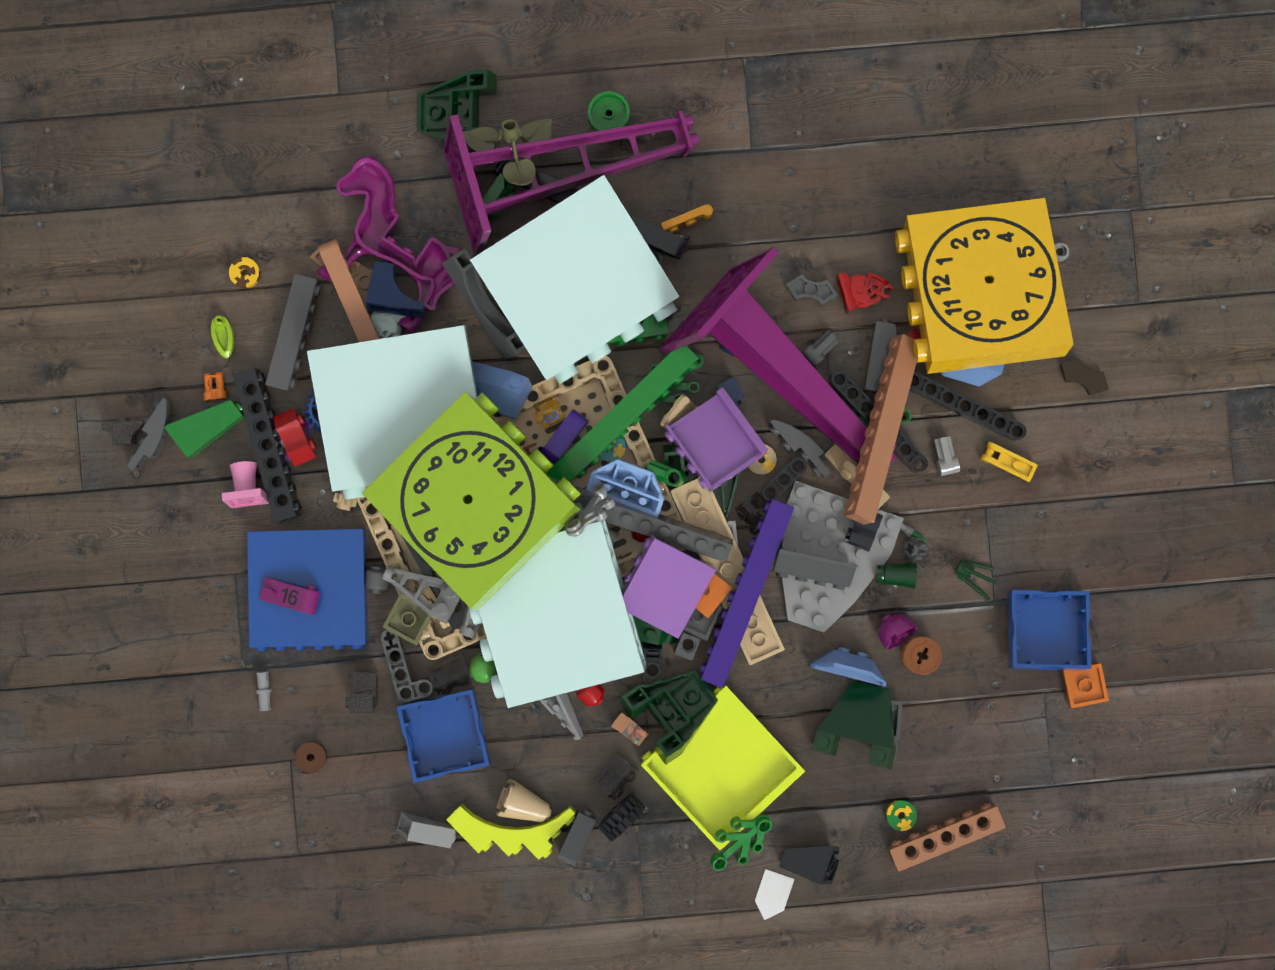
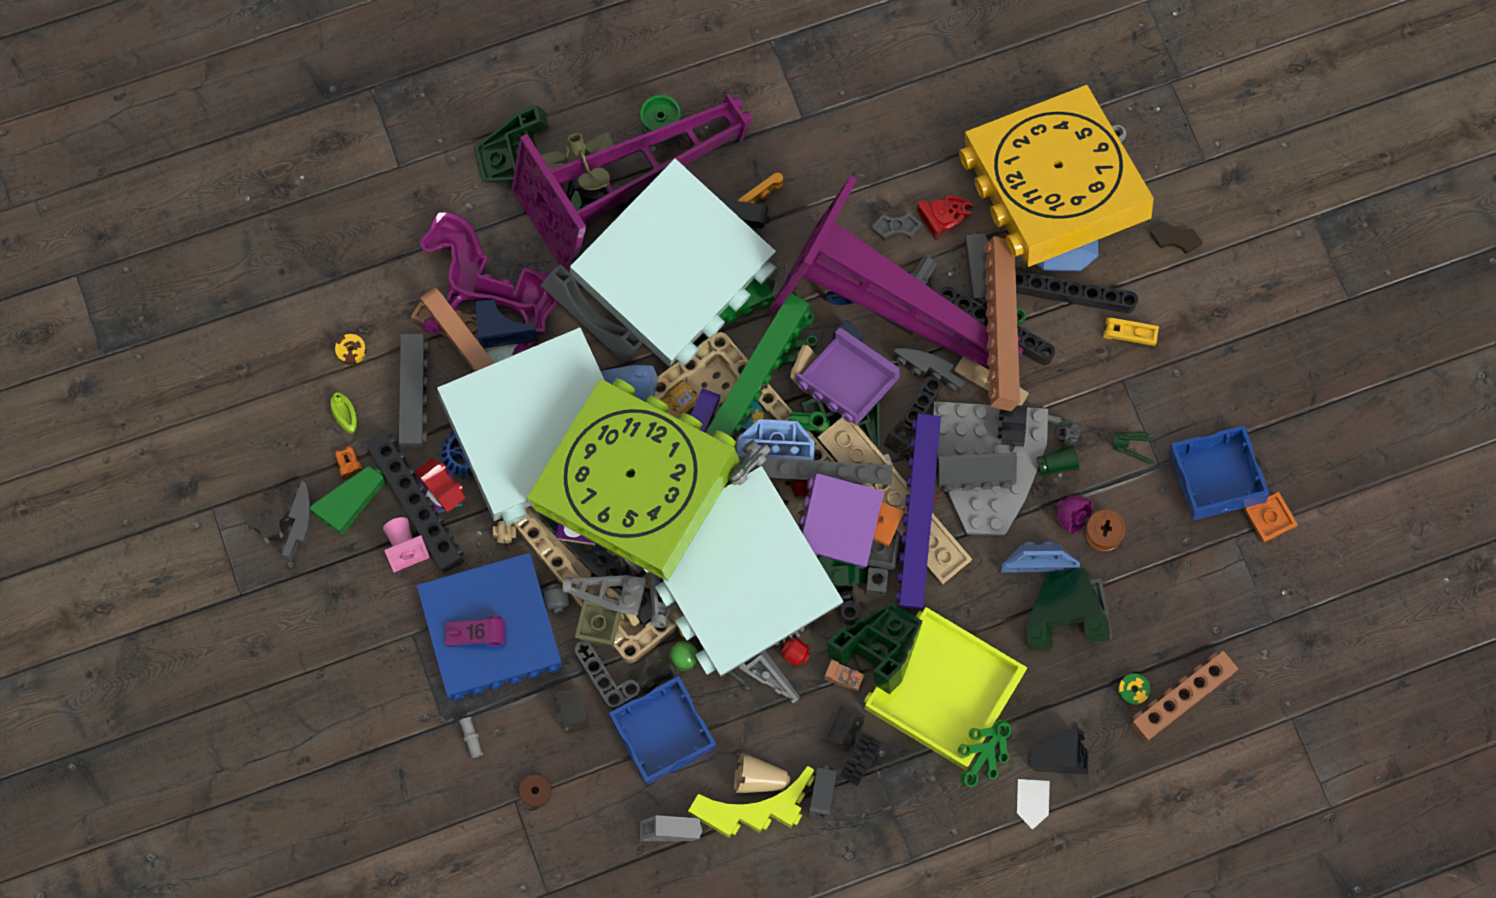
camera: 15 degrees left, 15 degrees down
(767, 466) = (902, 397): tan piece -> none
(947, 460) = (1071, 344): light grey piece -> none

